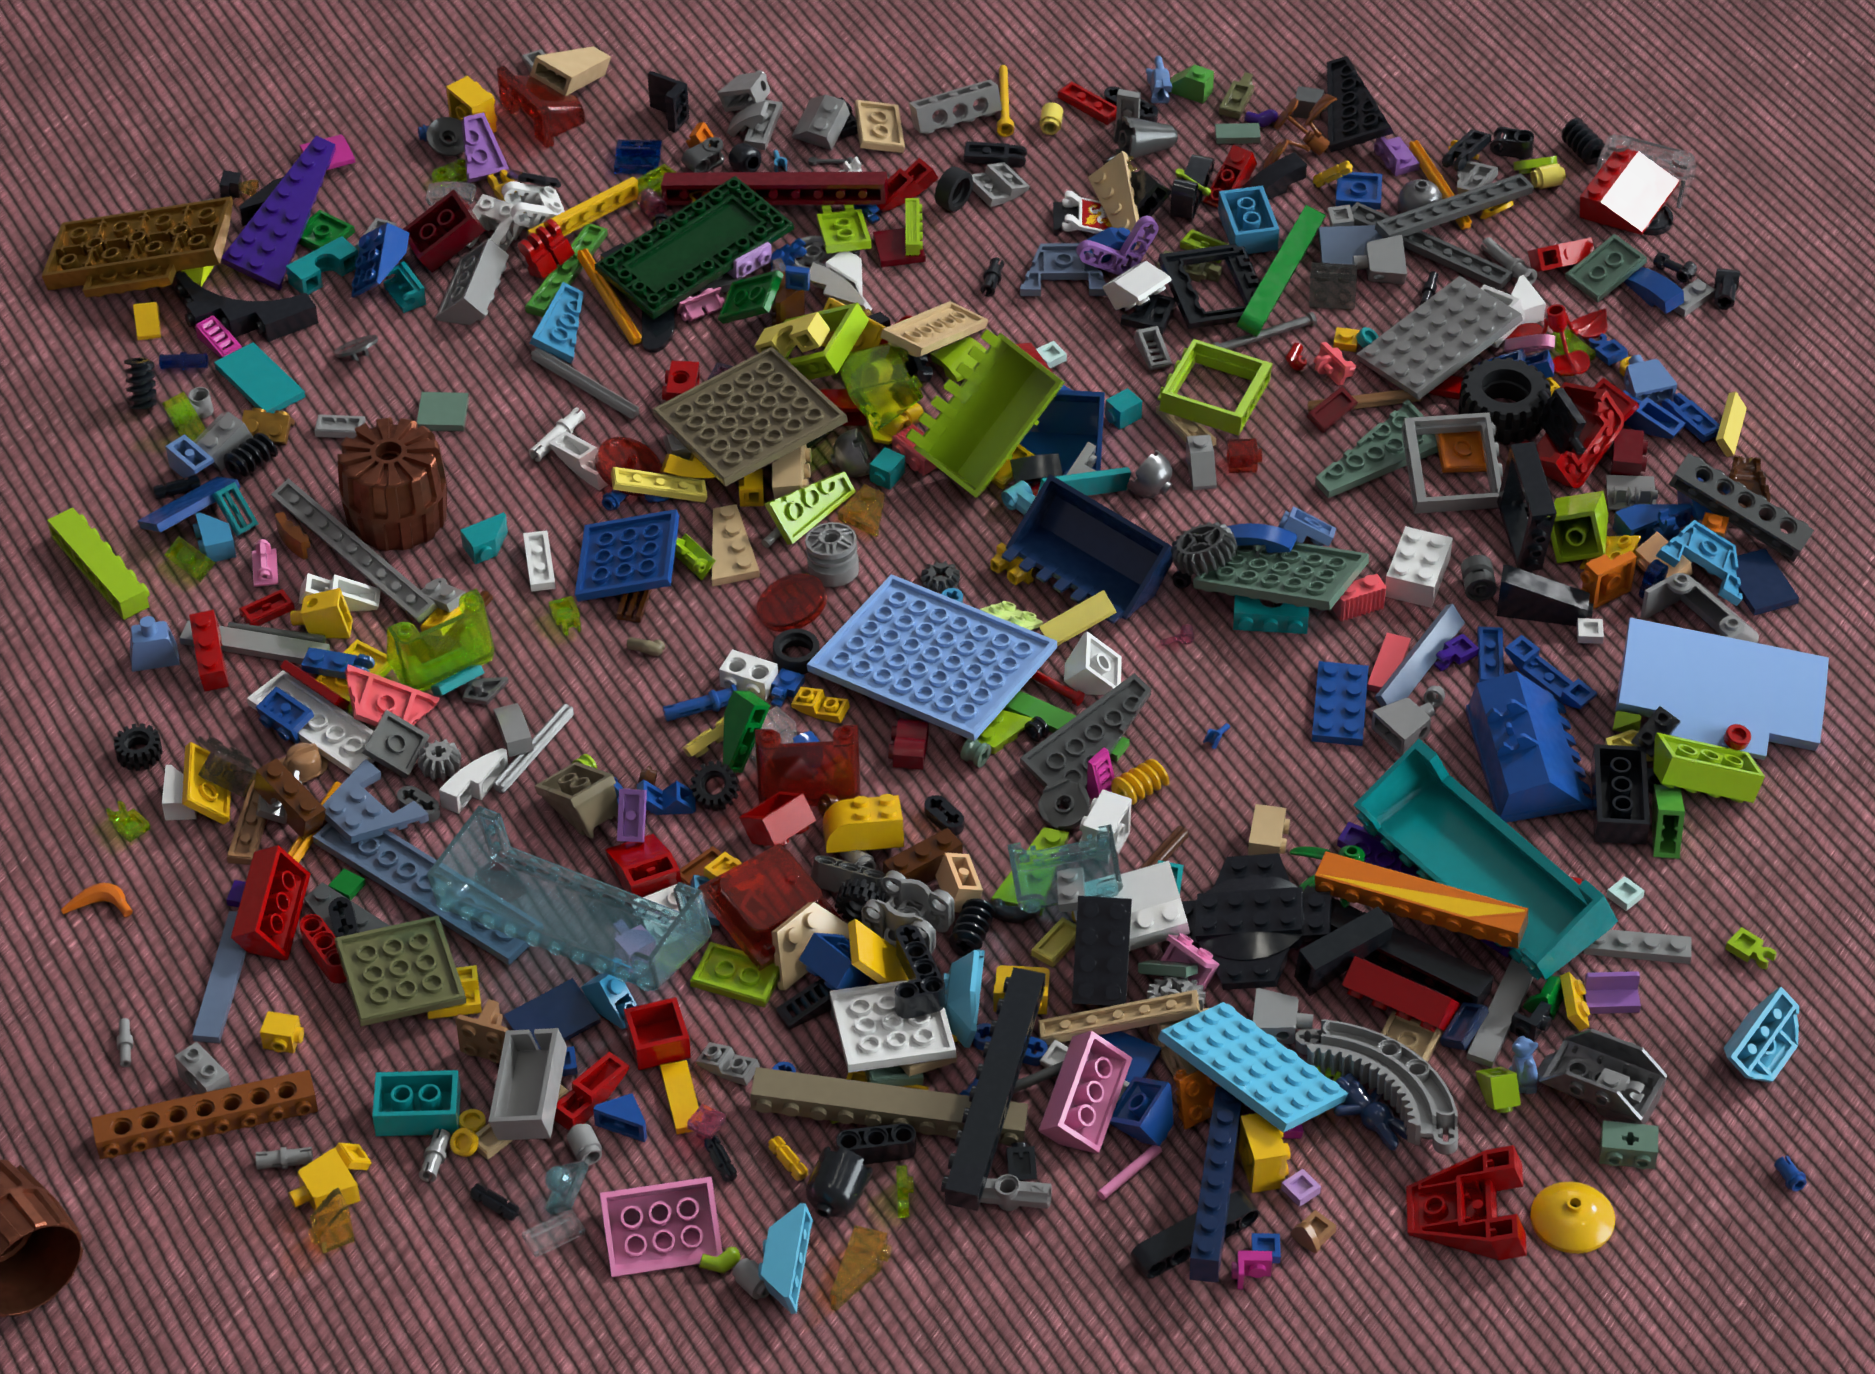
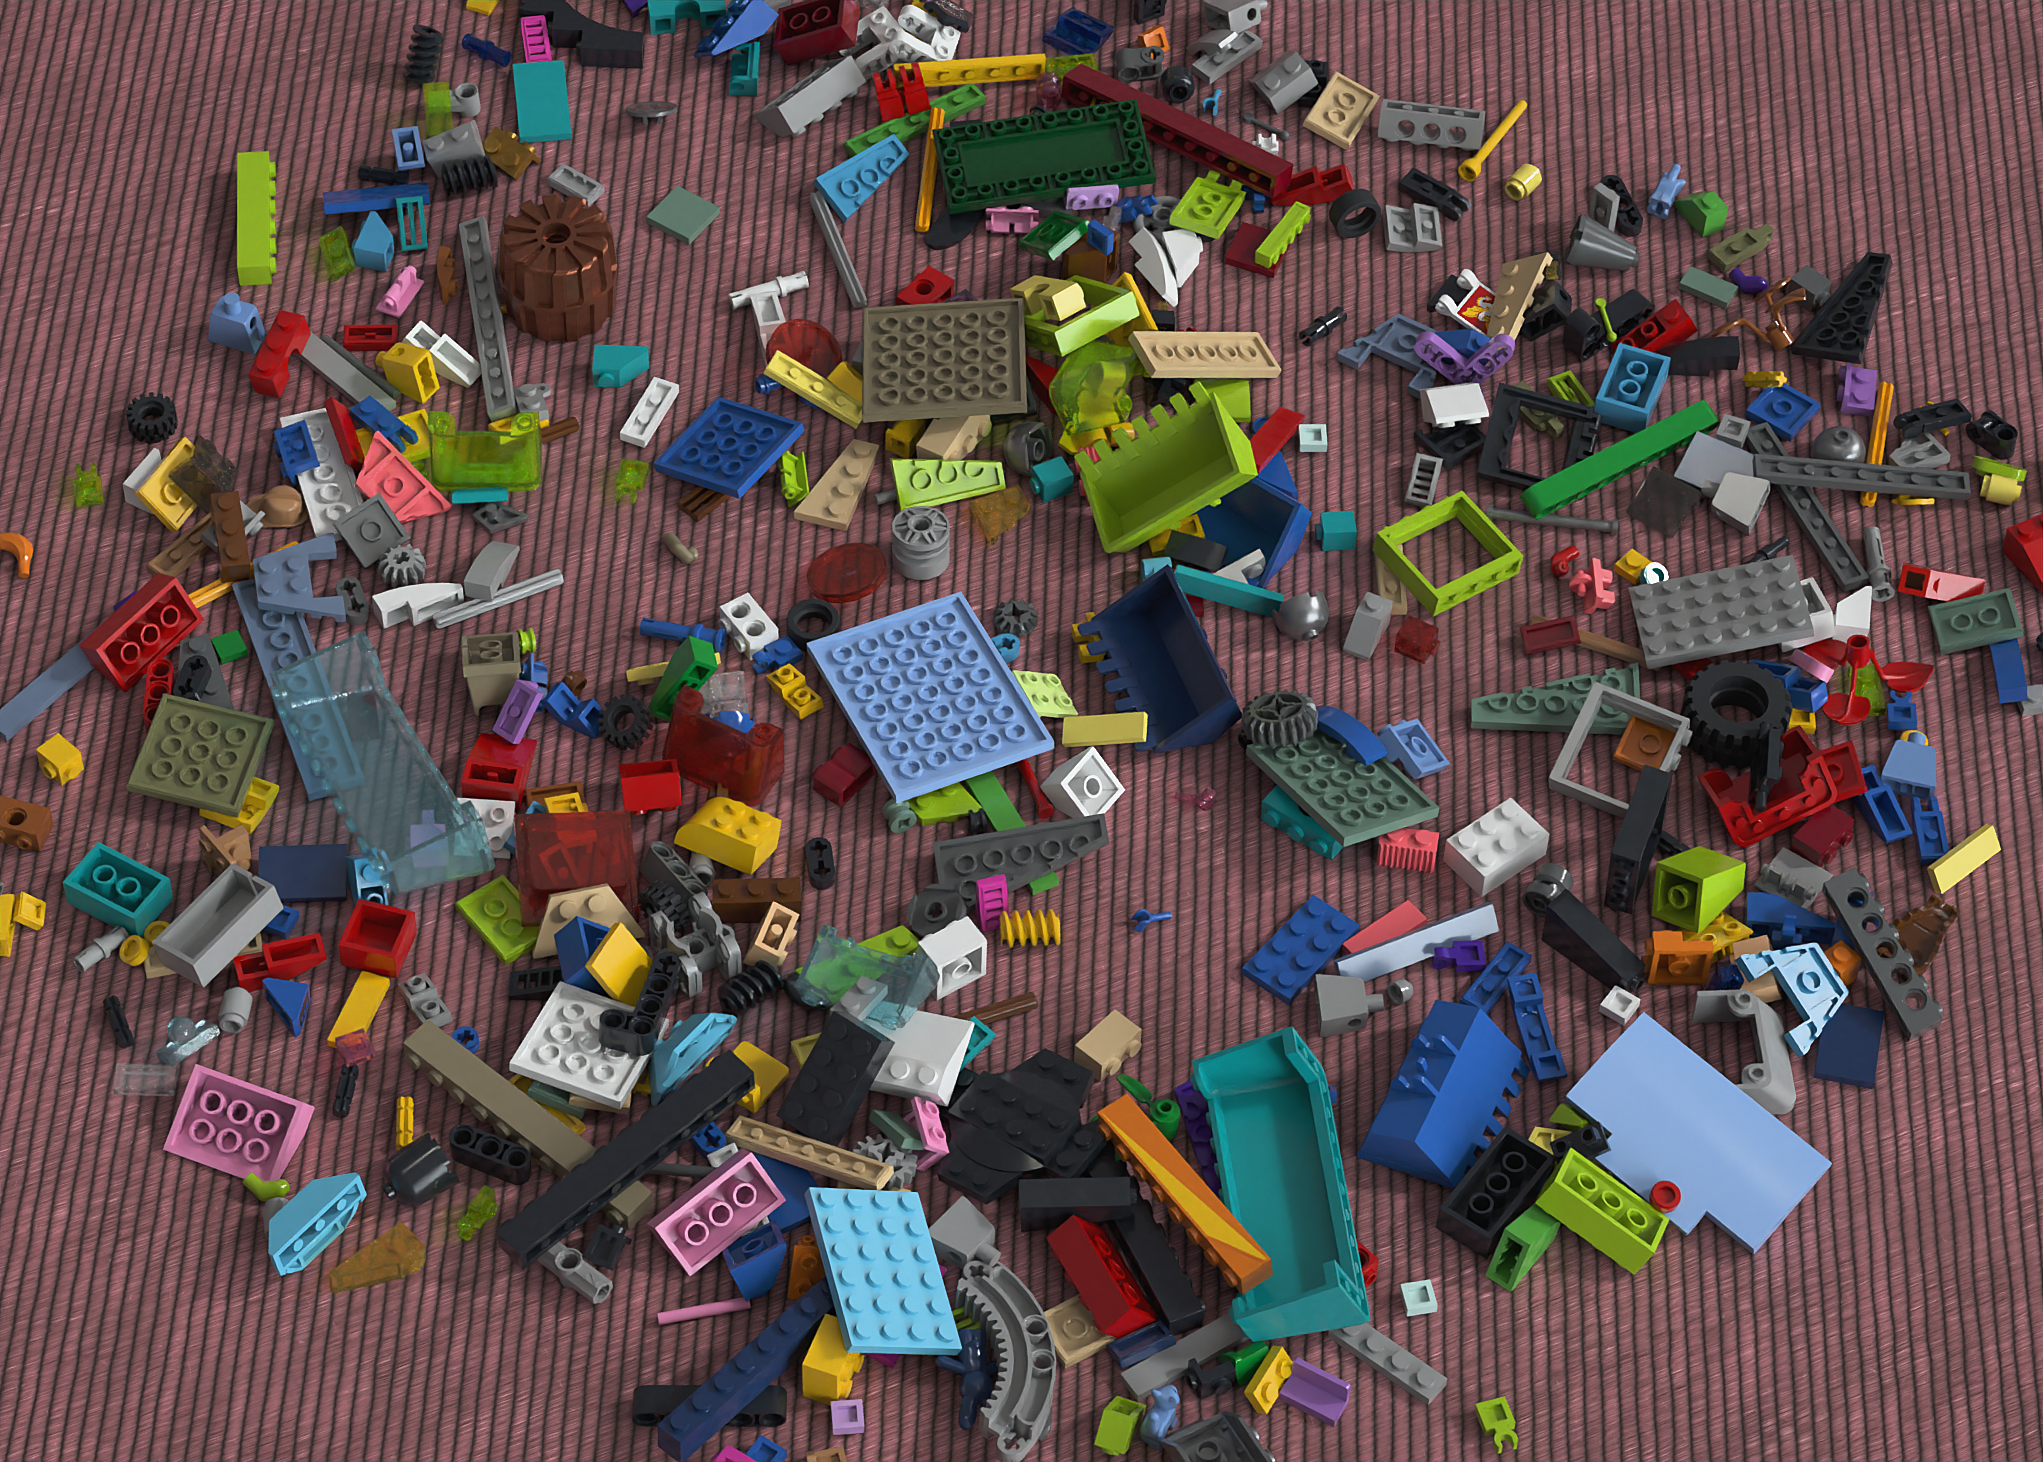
camera: 30 degrees right, 5 degrees up
(1088, 103) = (1577, 178): red tile -> none

